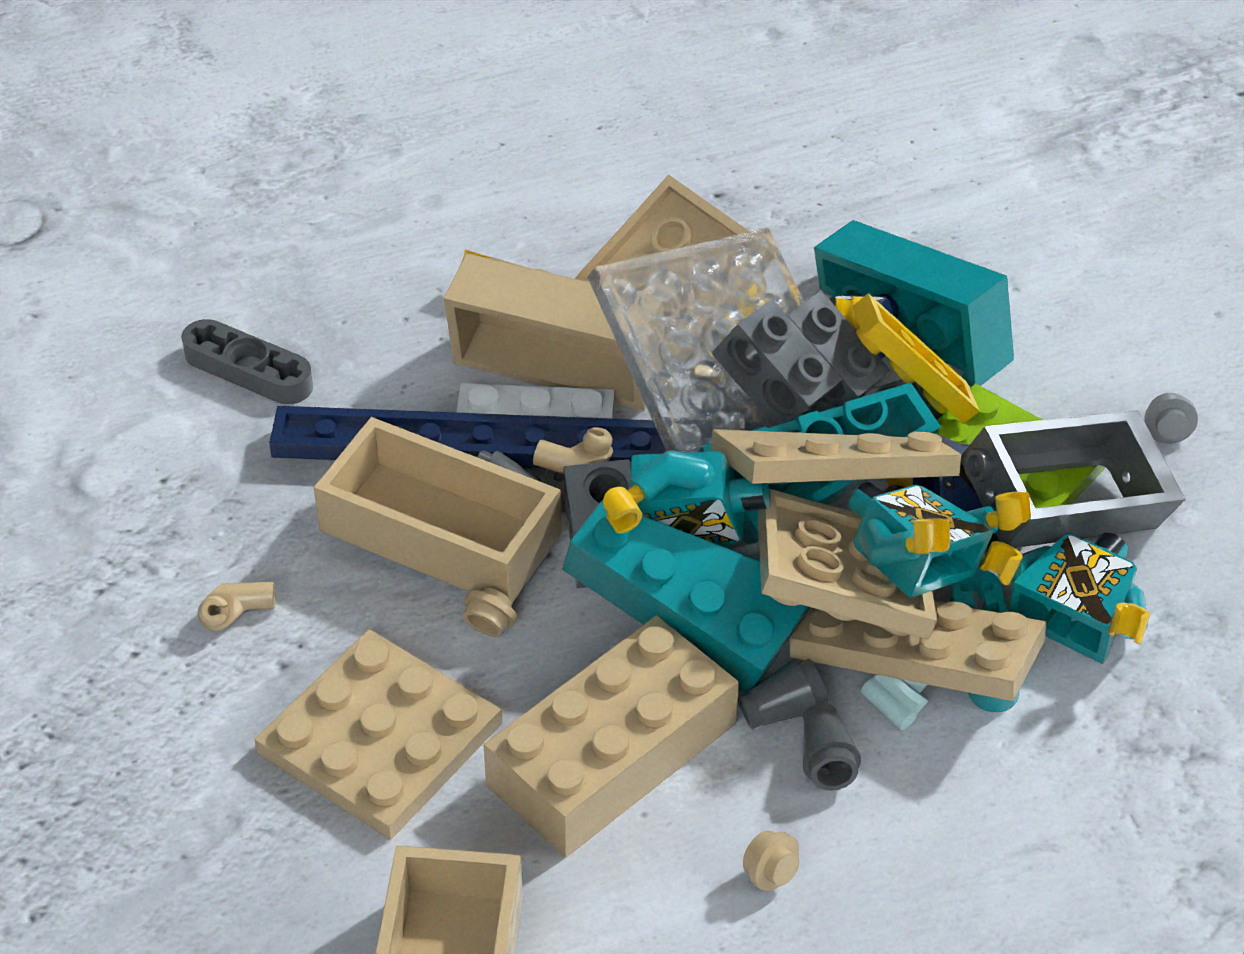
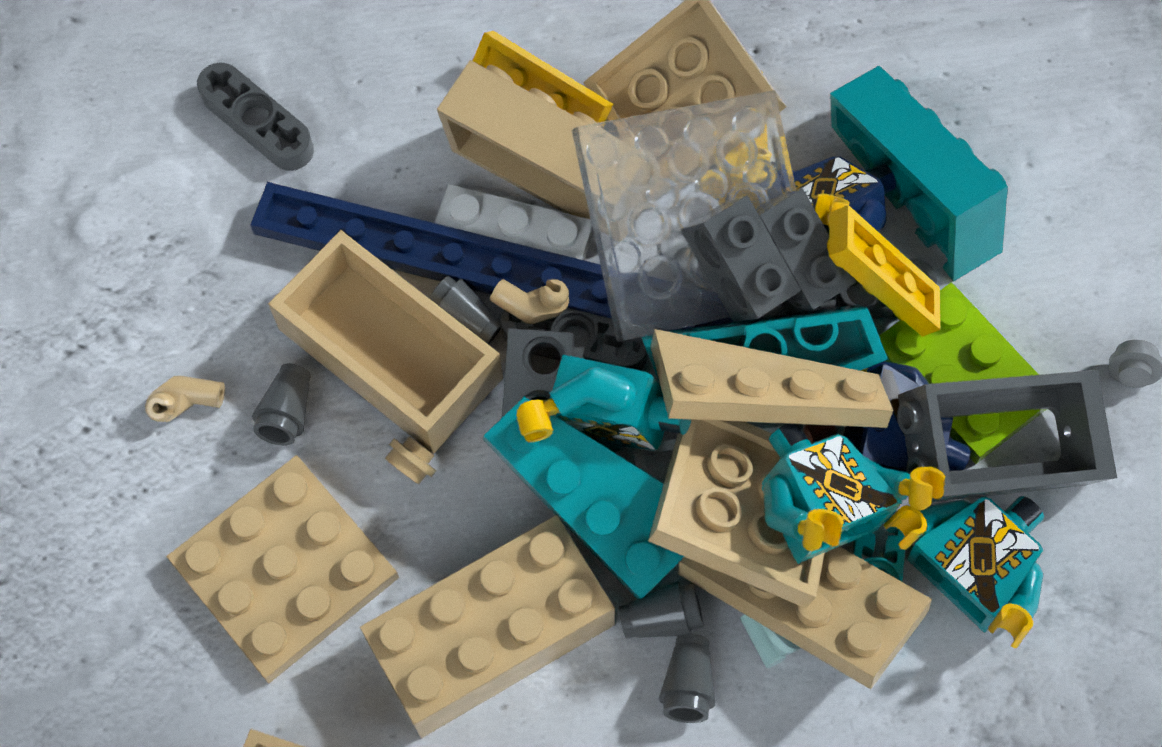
camera: 15 degrees right, 20 degrees up
(343, 592) = (283, 407): none -> dark grey cone

